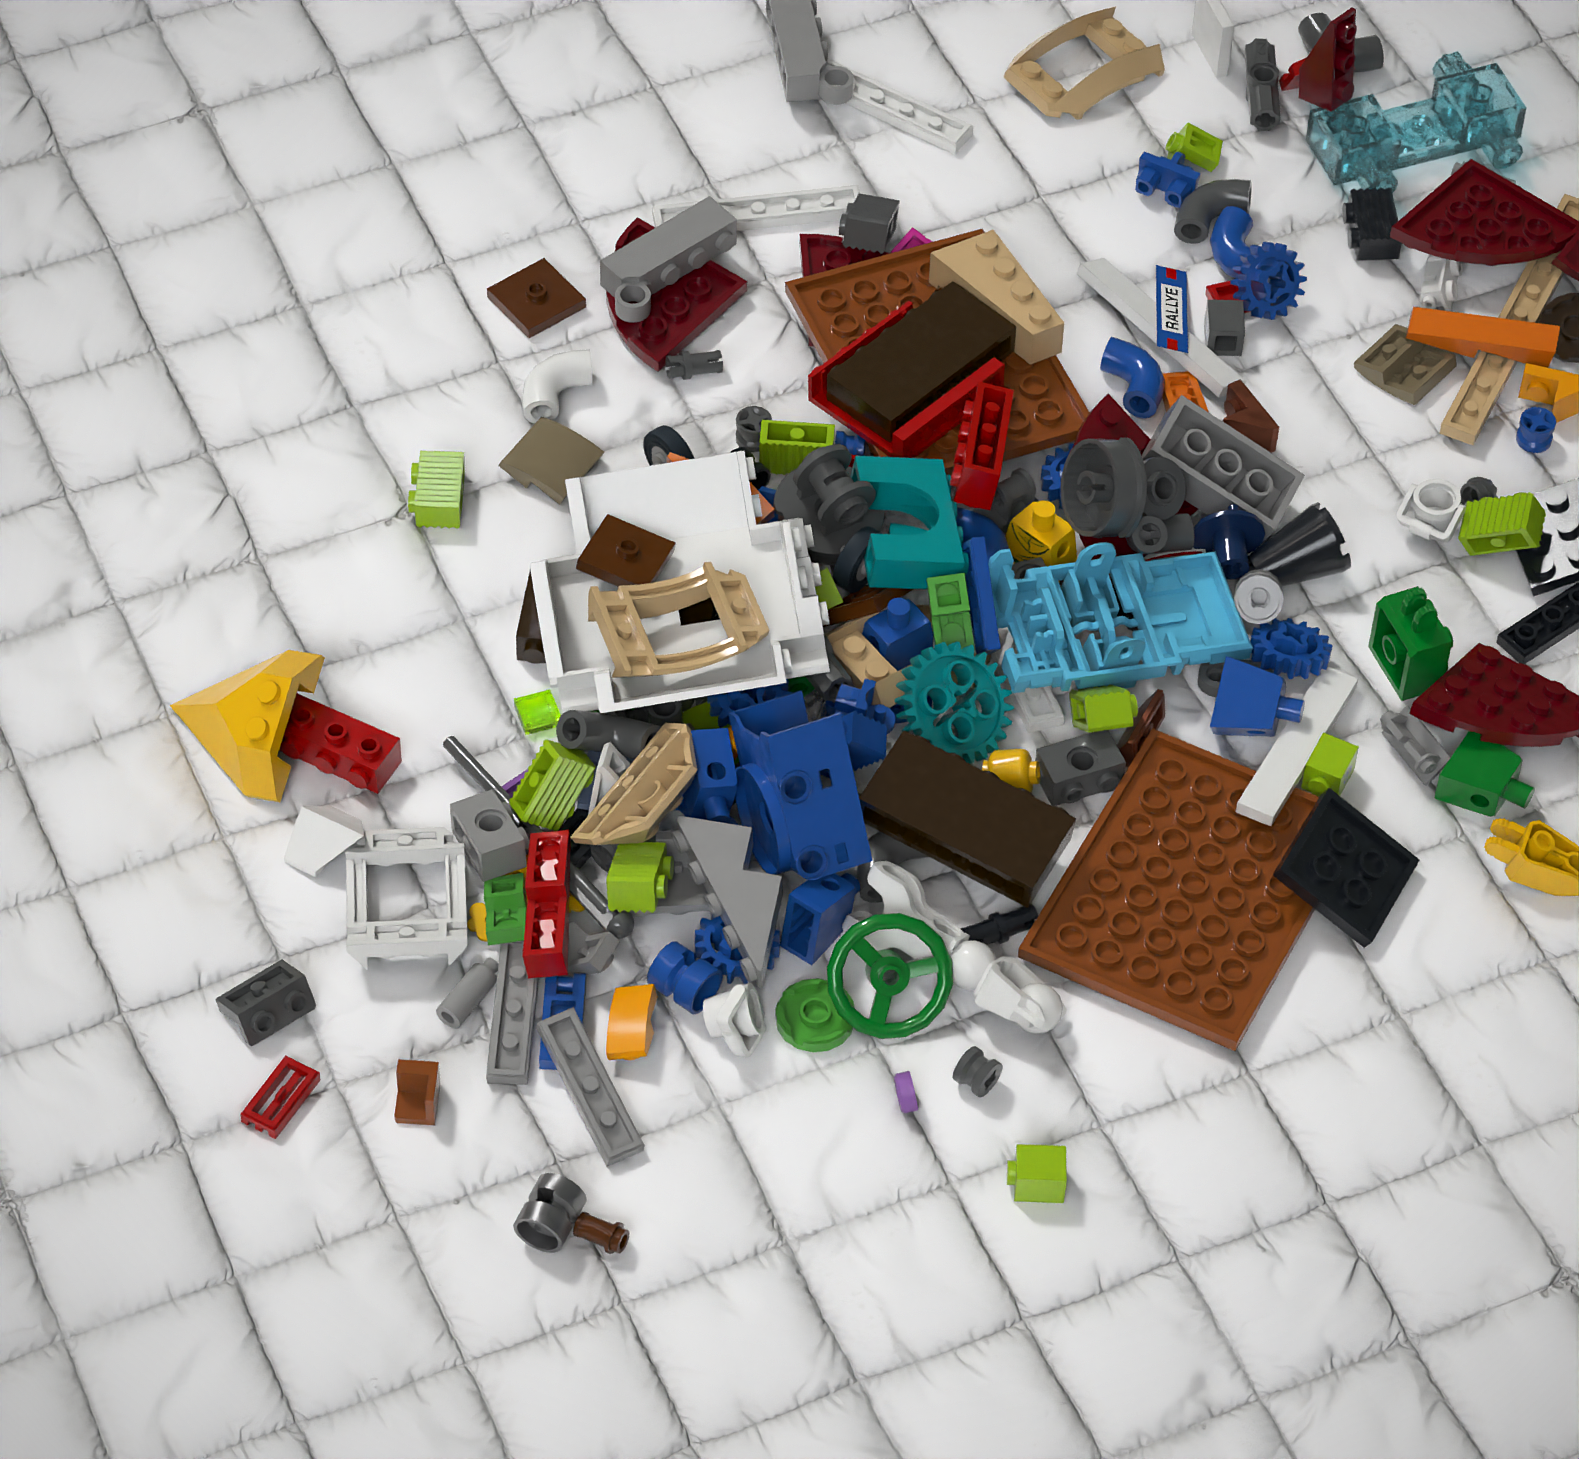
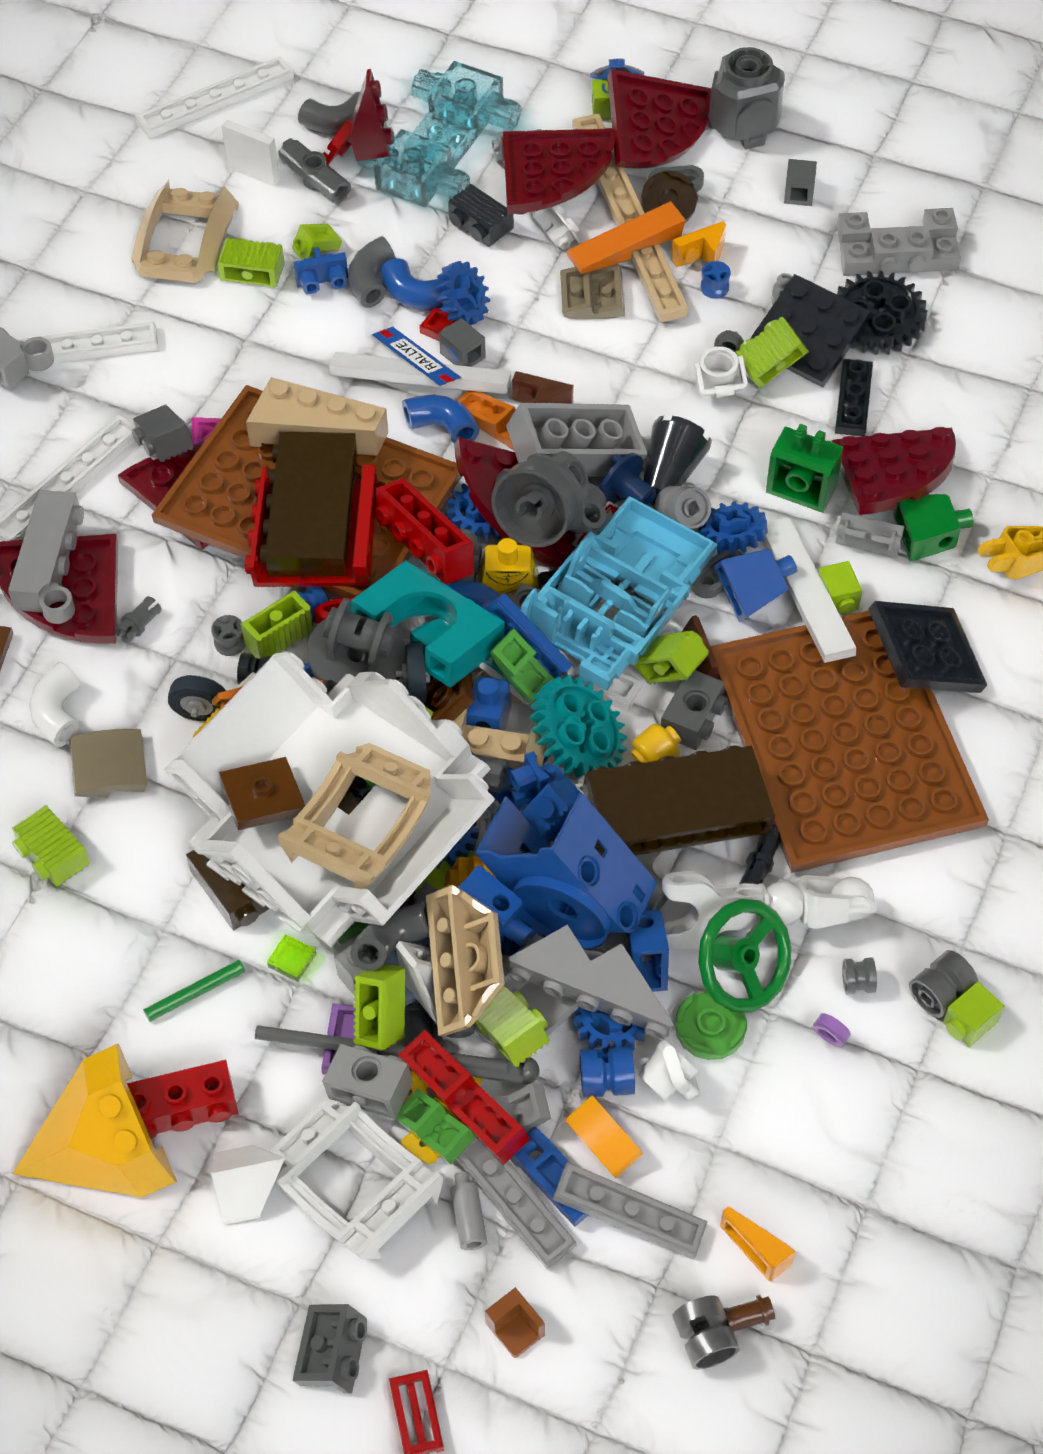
camera: 40 degrees left, 5 degrees up
(438, 679) = (194, 990): none -> green bar
(664, 1200) = (762, 1248): none -> light orange slope
(1039, 1127) = (942, 983): none -> flat silver wheel
(1113, 129) = (251, 262): none -> lime brick

